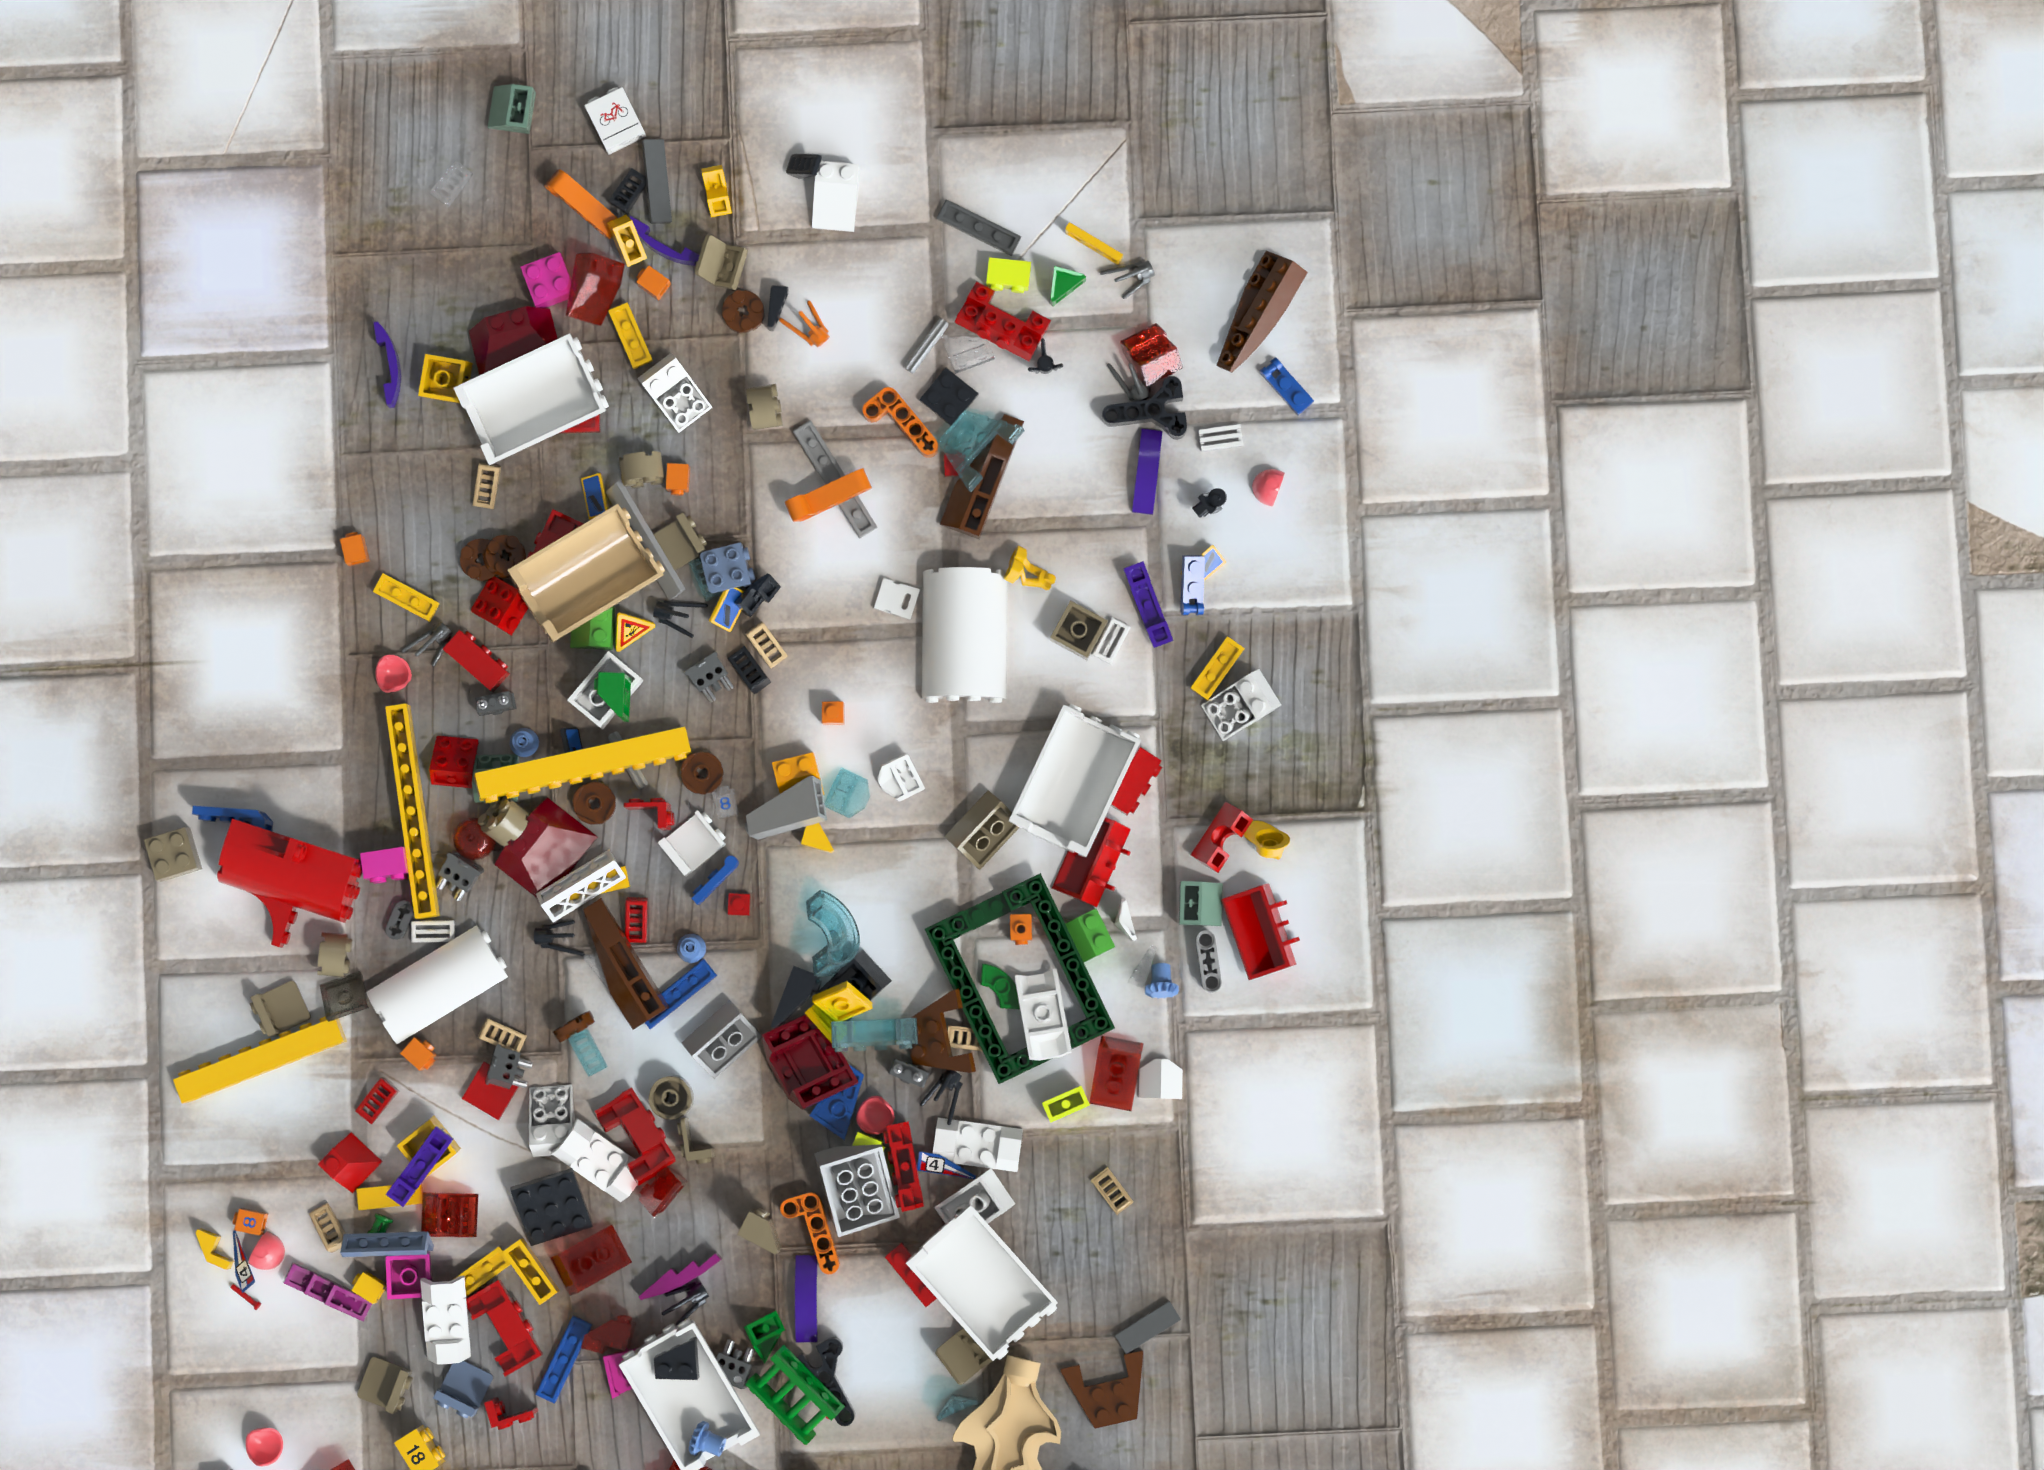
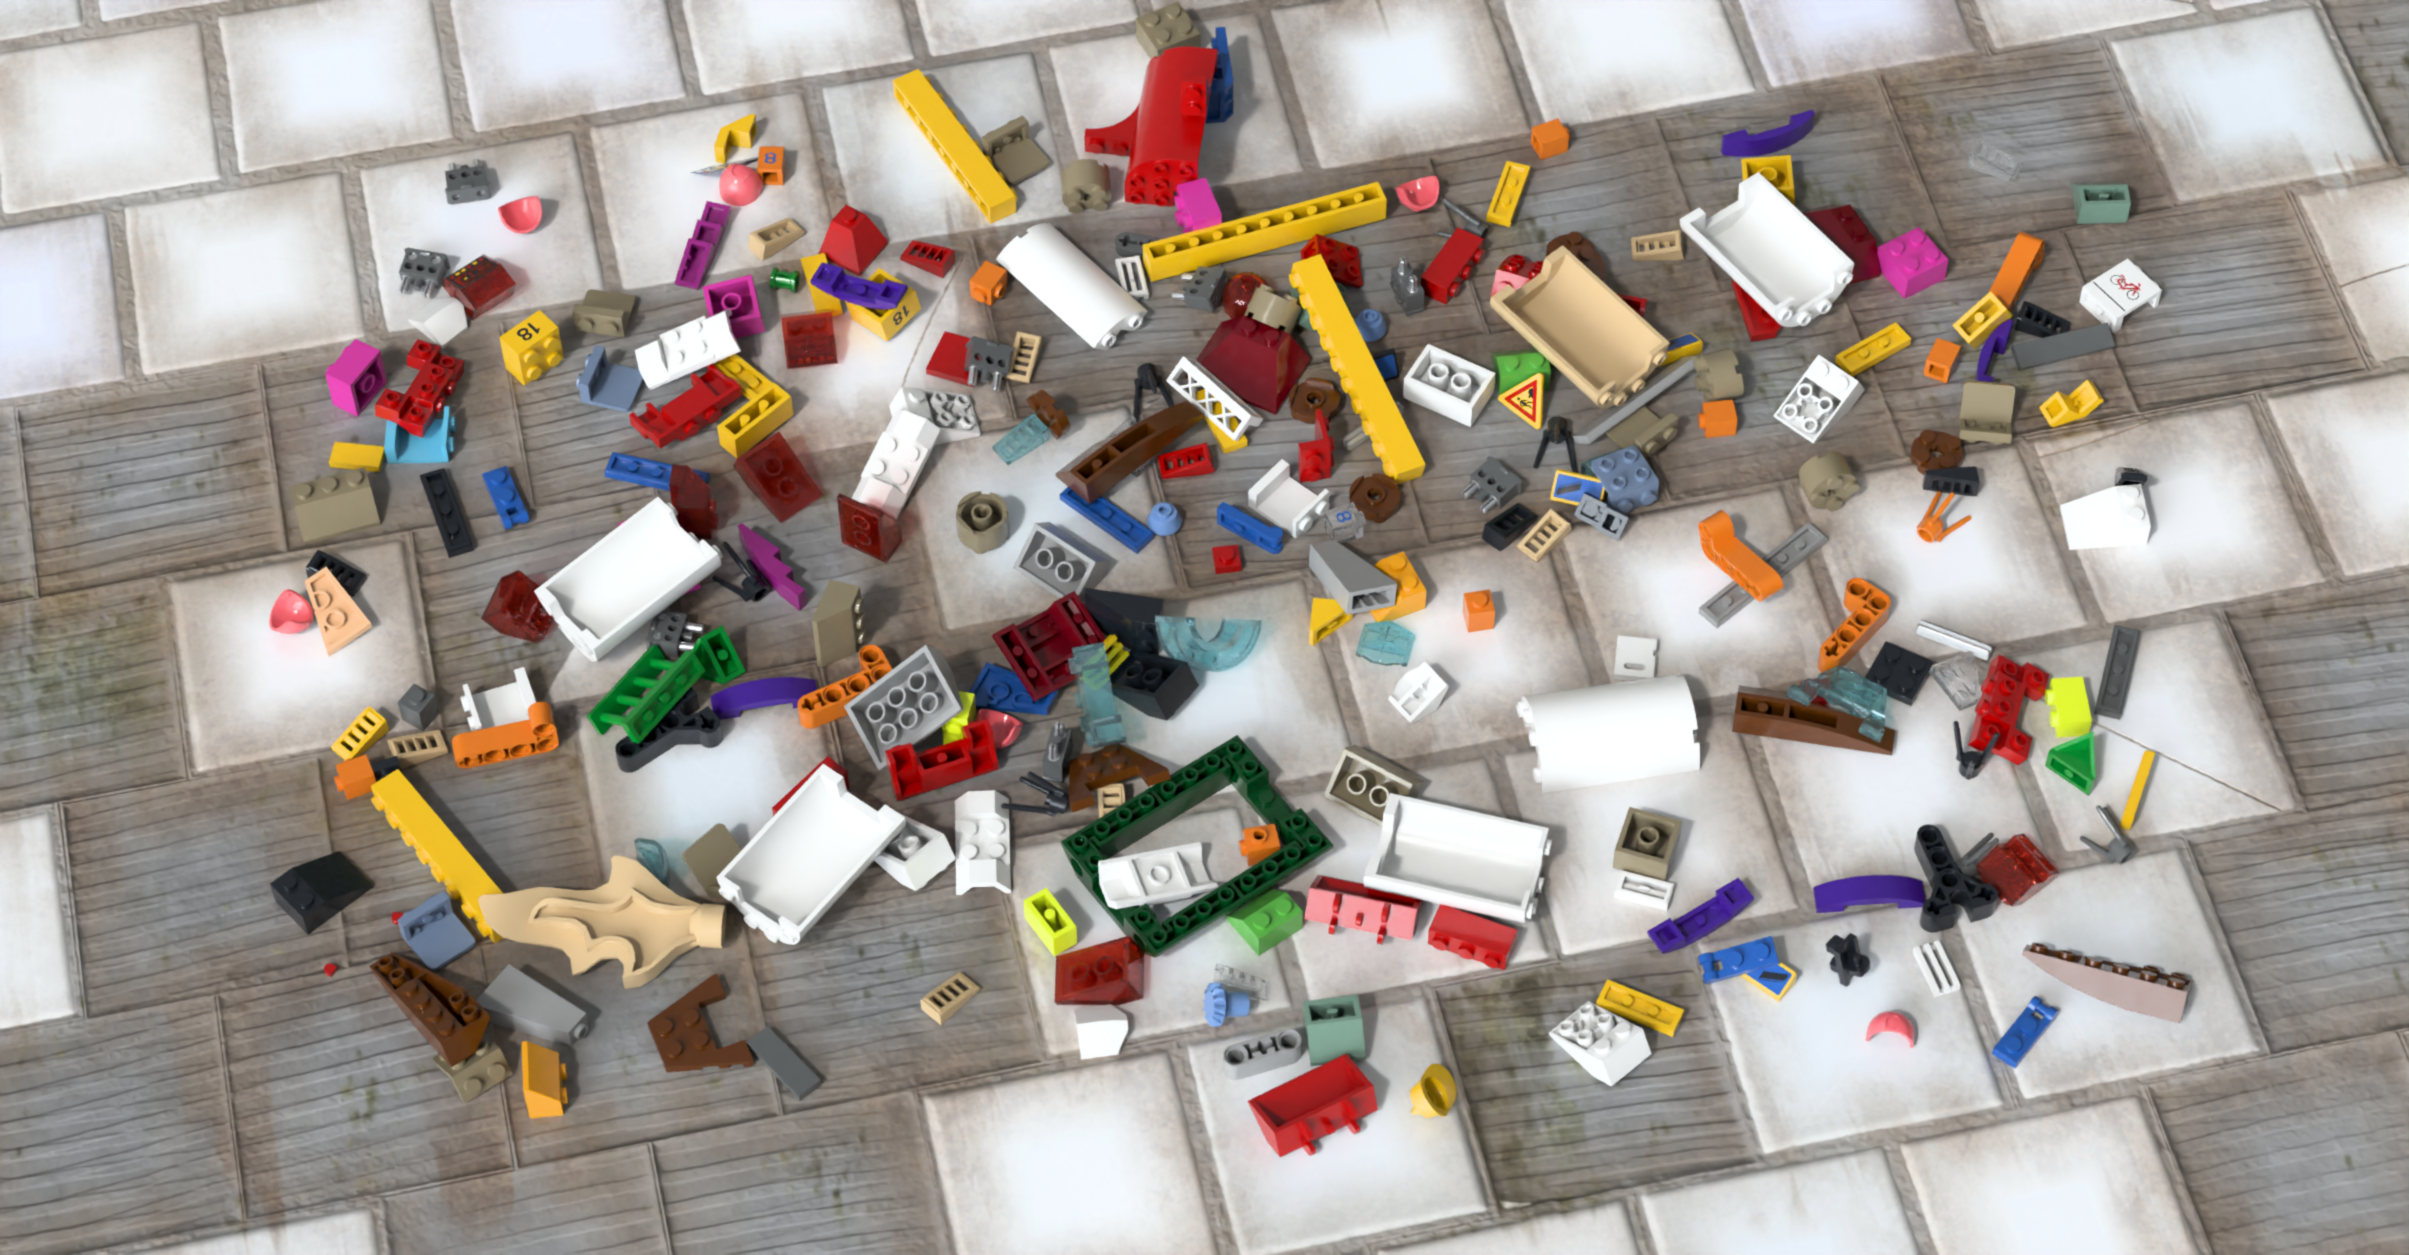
camera: 80 degrees right, 30 degrees down
(256, 1304) = (678, 188): red piece -> none
(344, 996) = (1040, 204): clear smoke tile -> none
(368, 1286) = (712, 273): yellow brick -> none
(386, 1244) = (765, 279): sand blue fence -> none
(496, 1409) = (586, 413): red bracket -> none
(551, 1207) = (833, 427): black plate -> none
(593, 287) = (1916, 299): clear red slope -> none
(615, 691) = (1444, 368): green slope -> none
(642, 1132) = (934, 498): red bracket -> none
(679, 1362) = (667, 564): black wing -> none
(700, 1156) = (933, 543): dark tan bracket -> none
(706, 1441) = (579, 607): medium blue gear -> none
(842, 1002) = (1130, 660): yellow tile -> none
(940, 1165) = (950, 804): sticker -> none
(1002, 985) = (1191, 830): green tile -> none
(1016, 570) = (1716, 768): yellow piece -> none
(1123, 920) = (1296, 950): white slope -> none
(1226, 823) = (1410, 1033): red arch -> none

